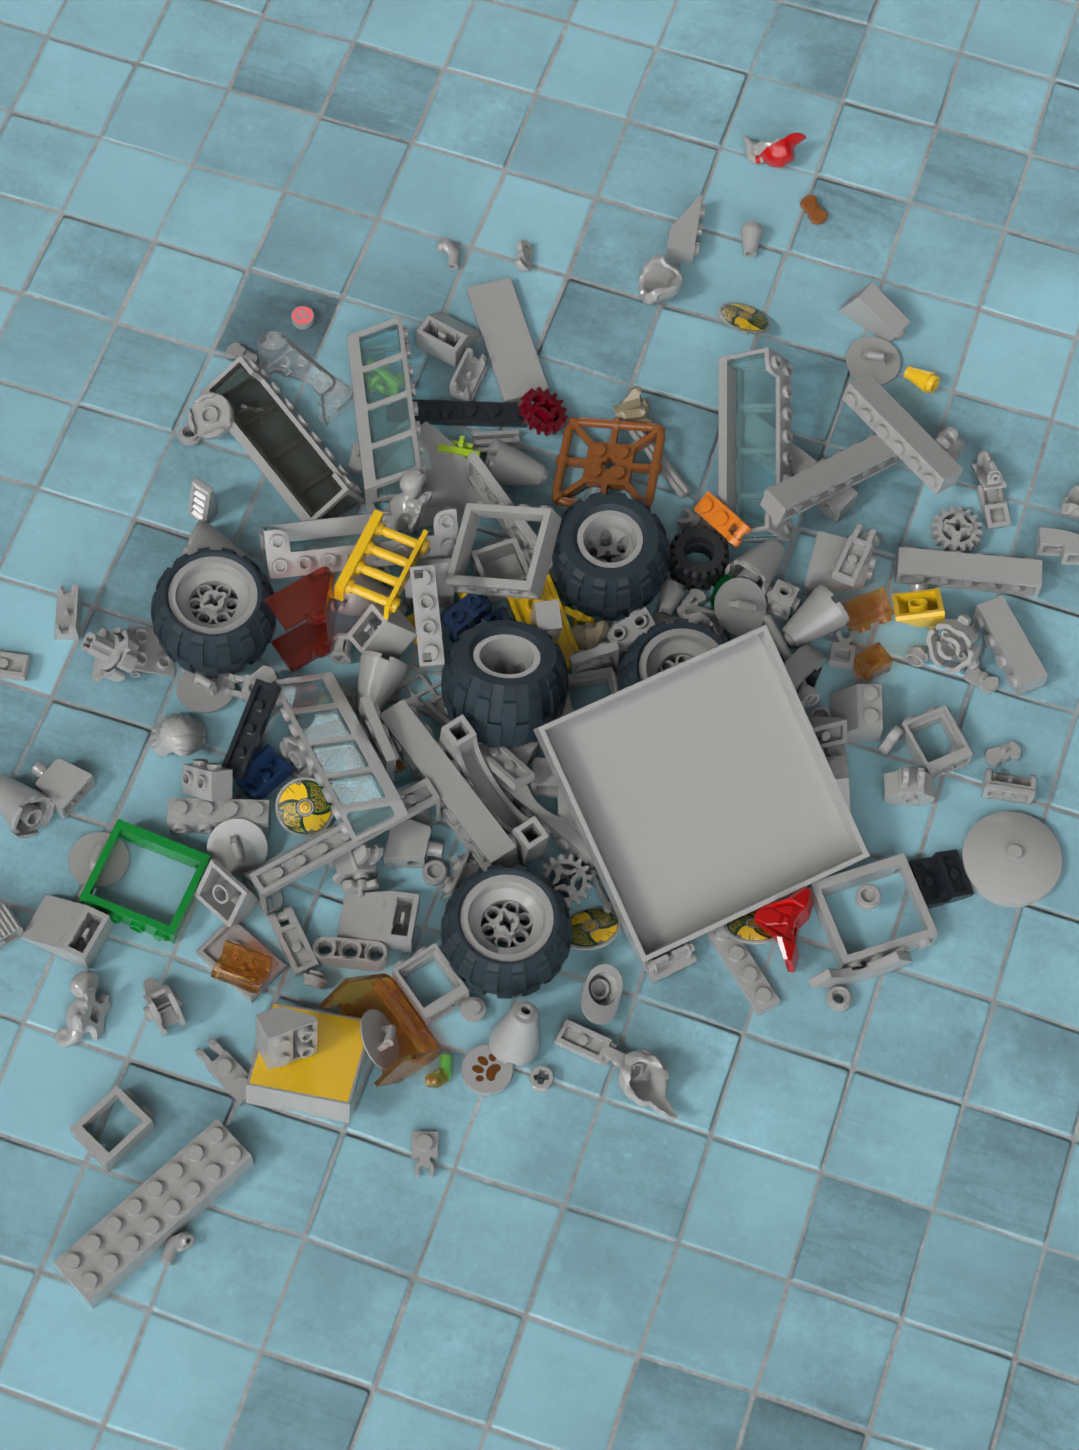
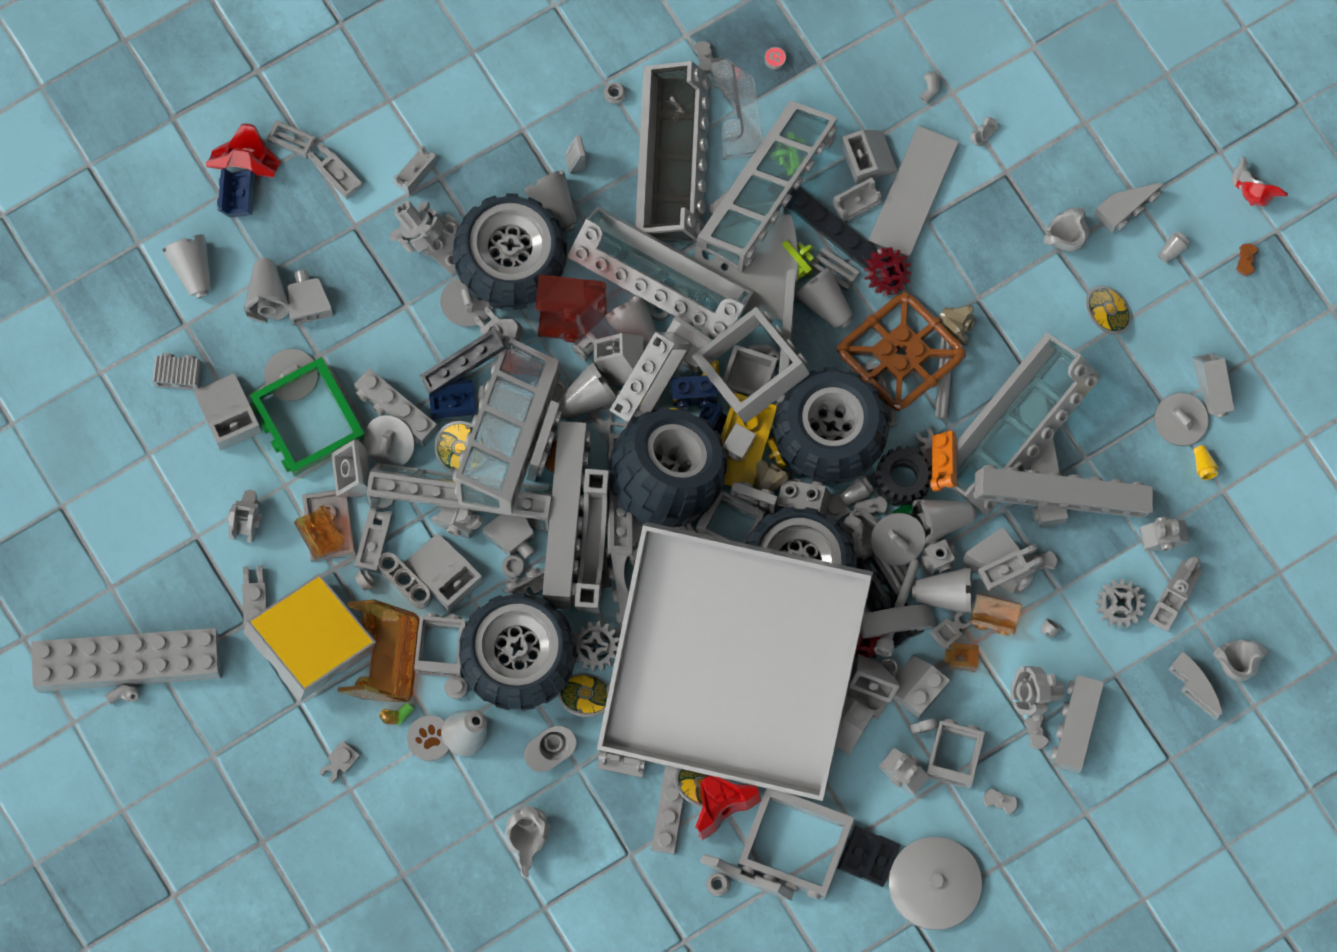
camera: 40 degrees right, 10 degrees up
(84, 1011) = (192, 480): light grey animal -> none
(112, 1158) = (124, 595): light grey window -> none
(178, 735) = (417, 324): light grey hair -> none
(207, 780) = (404, 376): light grey brick -> none
(210, 416) = (636, 91): light grey tile -> none
(285, 1036) = (298, 609): light grey slope -> none
(360, 886) = (449, 537): light grey piece -> none
(366, 546) = (652, 287): yellow fence -> none
(379, 1038) = (369, 659): light grey shield -> none
(408, 506) = (716, 275): light grey animal -> none
(535, 1074) = (461, 767): light grey bush -> none
(588, 1044) = (513, 775): light grey hinge -> none
(867, 897) = (798, 829): light grey tile -> none
(902, 433) = (1138, 498): light grey brick -> none
(916, 655) = (1002, 677): light grey plate -> none
(919, 607) = (1031, 642): yellow slope -> none
(968, 571) = (1100, 643): light grey brick -> none
(1008, 787) = (981, 828): light grey hinge -> none

